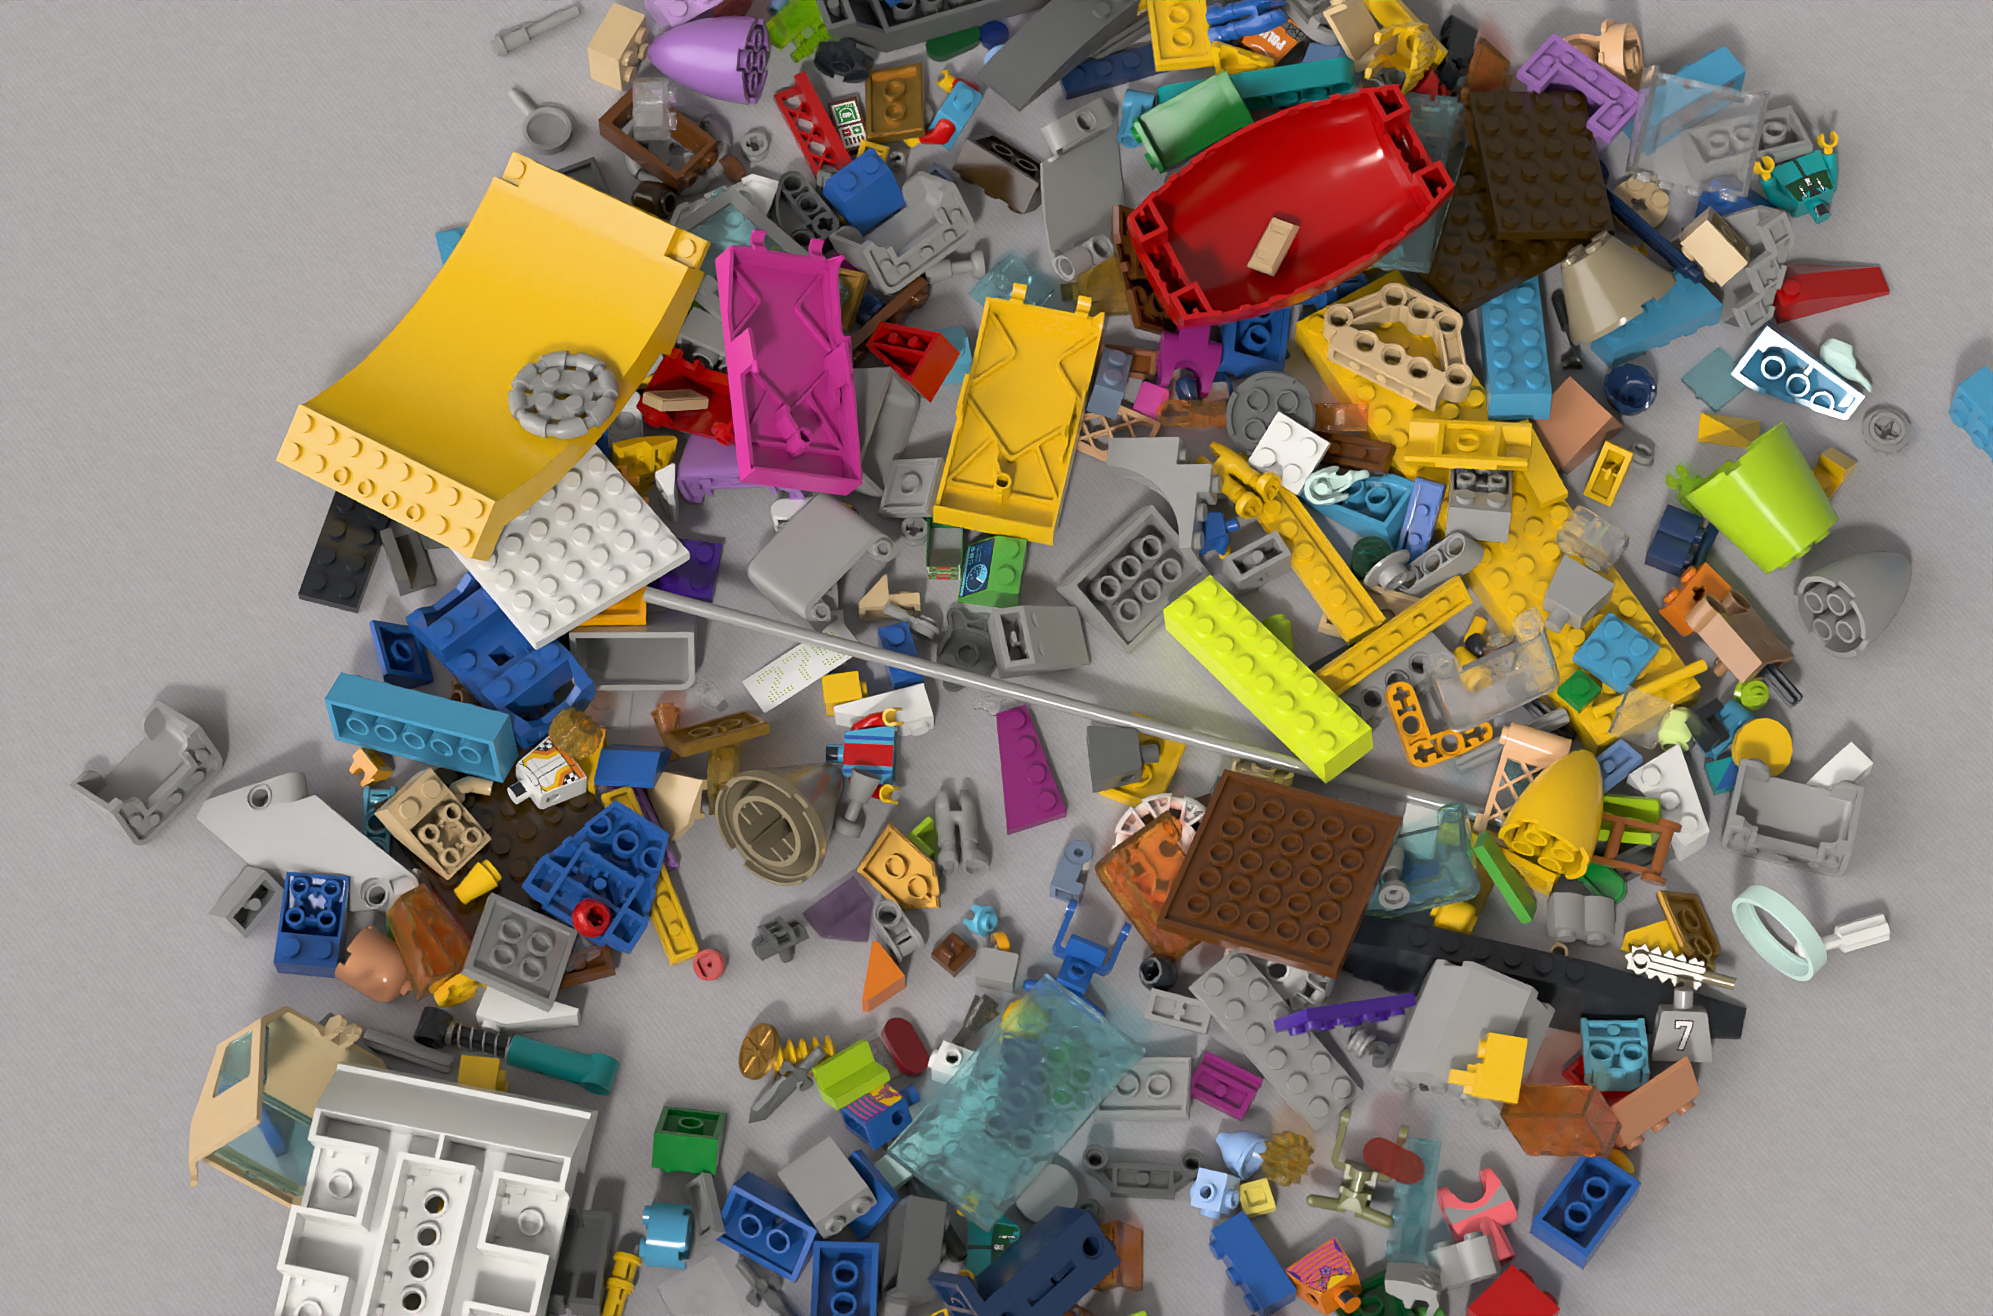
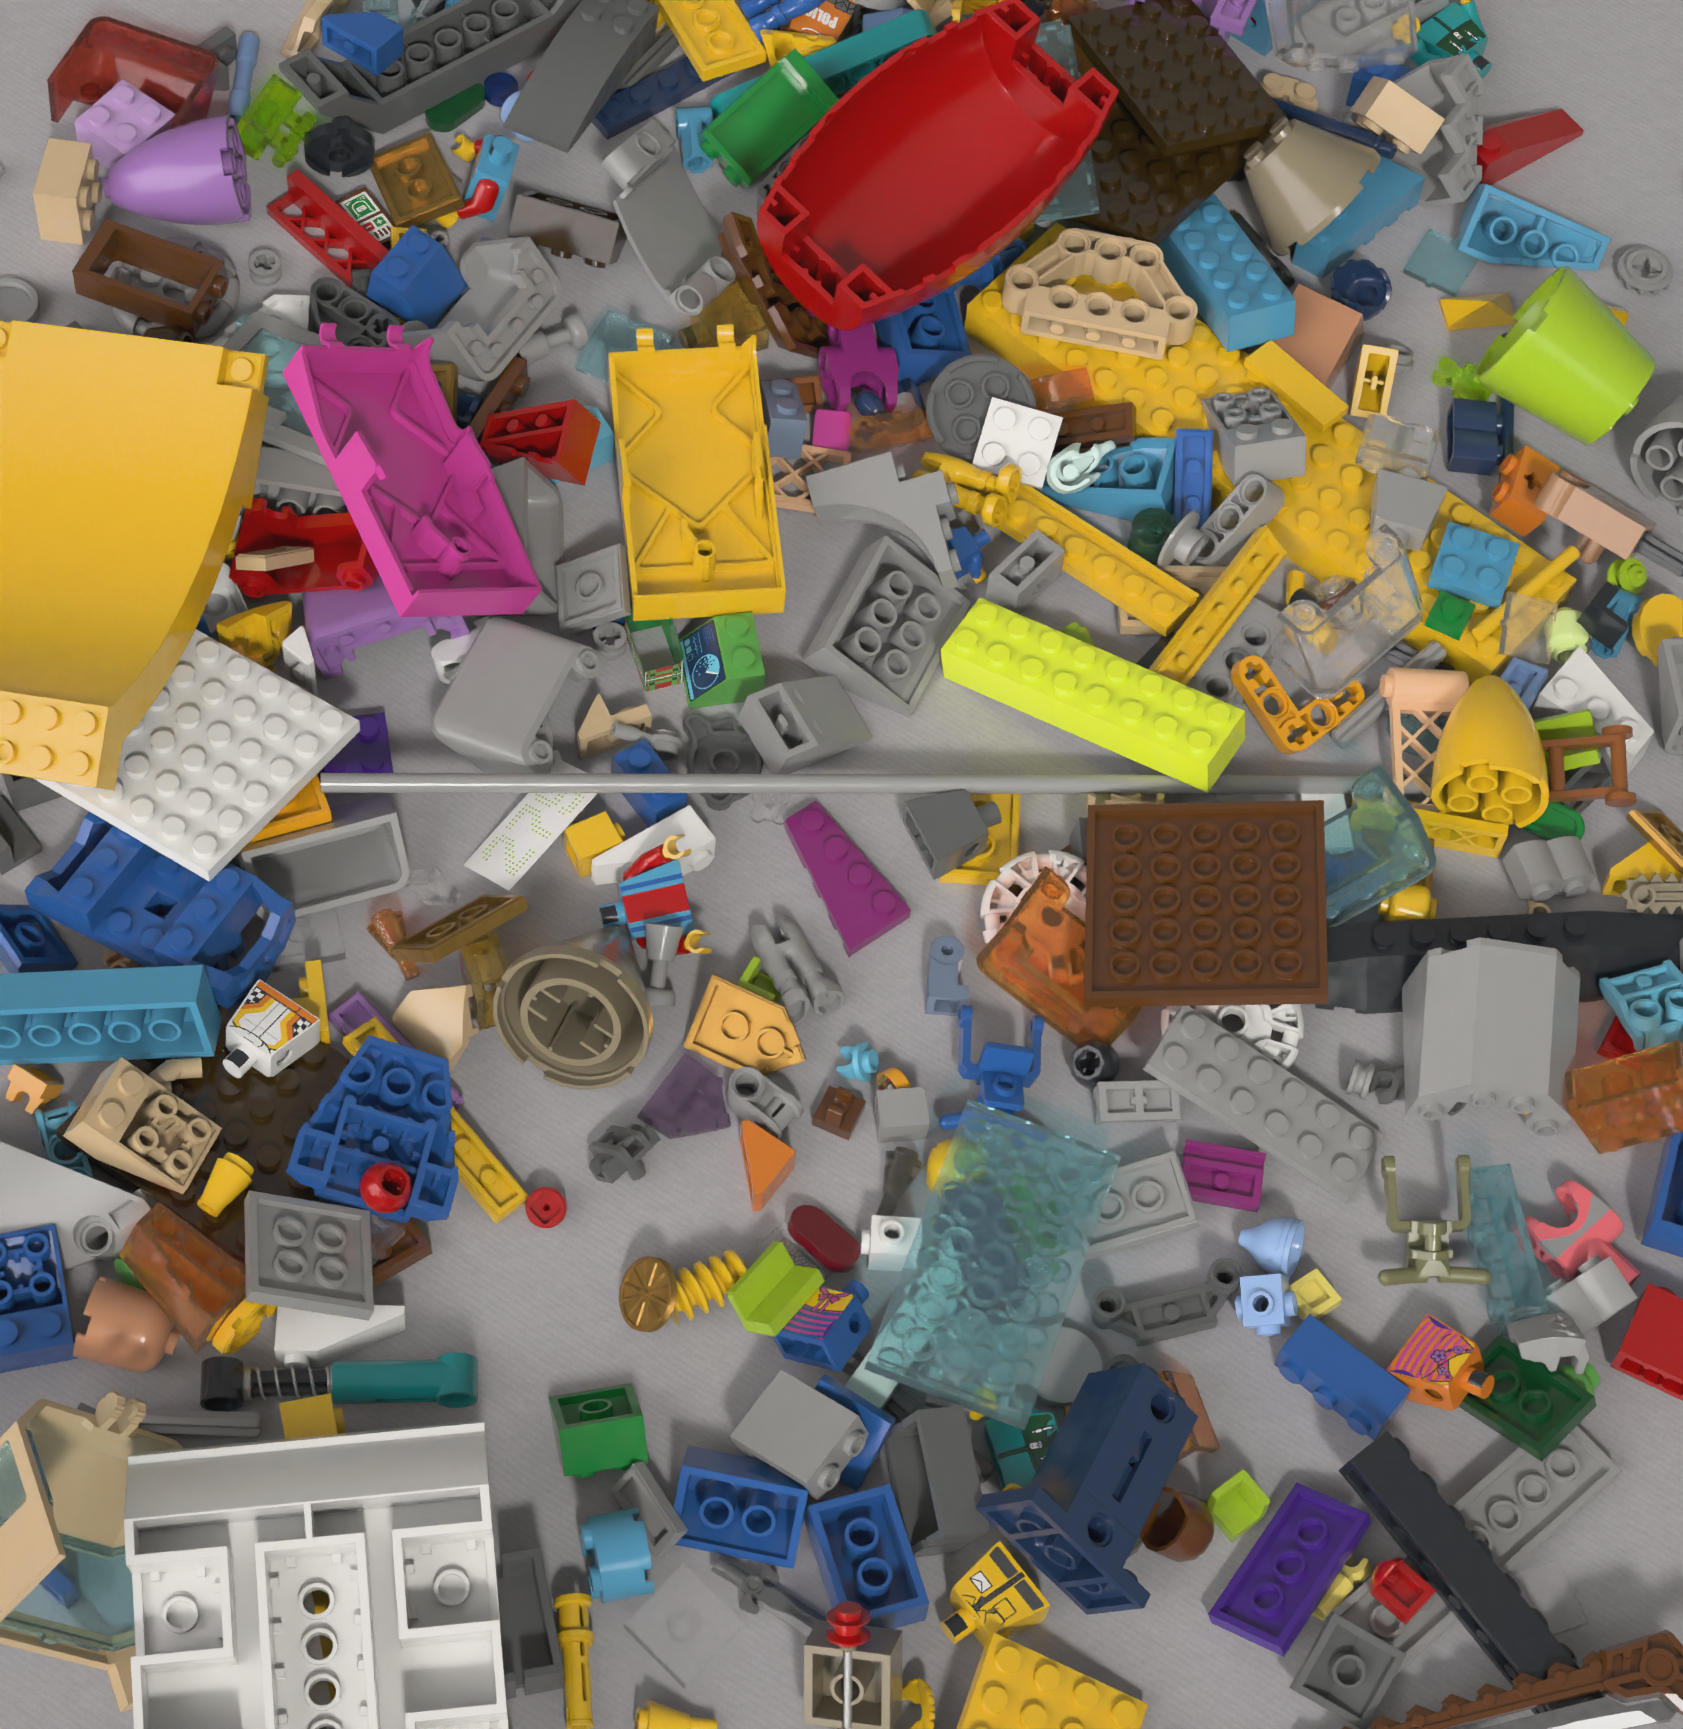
camera: 25 degrees left, 5 degrees down
(558, 381) = (149, 598): light grey plate -> none
(575, 733) = (288, 970): clear yellow gear -> none
(631, 765) = (367, 995): blue slope -> none
(653, 108) = (136, 240): clear brick -> none
(732, 168) = (249, 294): reddish brown tile -> none
(786, 1085) = (698, 1324): dark grey sword -> none
(1273, 246) = (917, 222): tan tile -> none
(1286, 1158) = (1333, 1237): clear yellow gear -> none
(1345, 1014) = (1340, 1047): dark purple plate -> none
(1393, 893) = (1342, 890): light grey piece -> none
(1394, 1161) = (1468, 1201): clear red tile -> none
(1469, 444) = (1220, 380): yellow piece -> none
(1499, 1072) = (1556, 1057): yellow hinge -> none
(1505, 877) = (1453, 845): bright green tile -> none
(1721, 775) = (1632, 673): teal tile -> none
(1840, 358) = (1570, 204): light aqua piece -> none

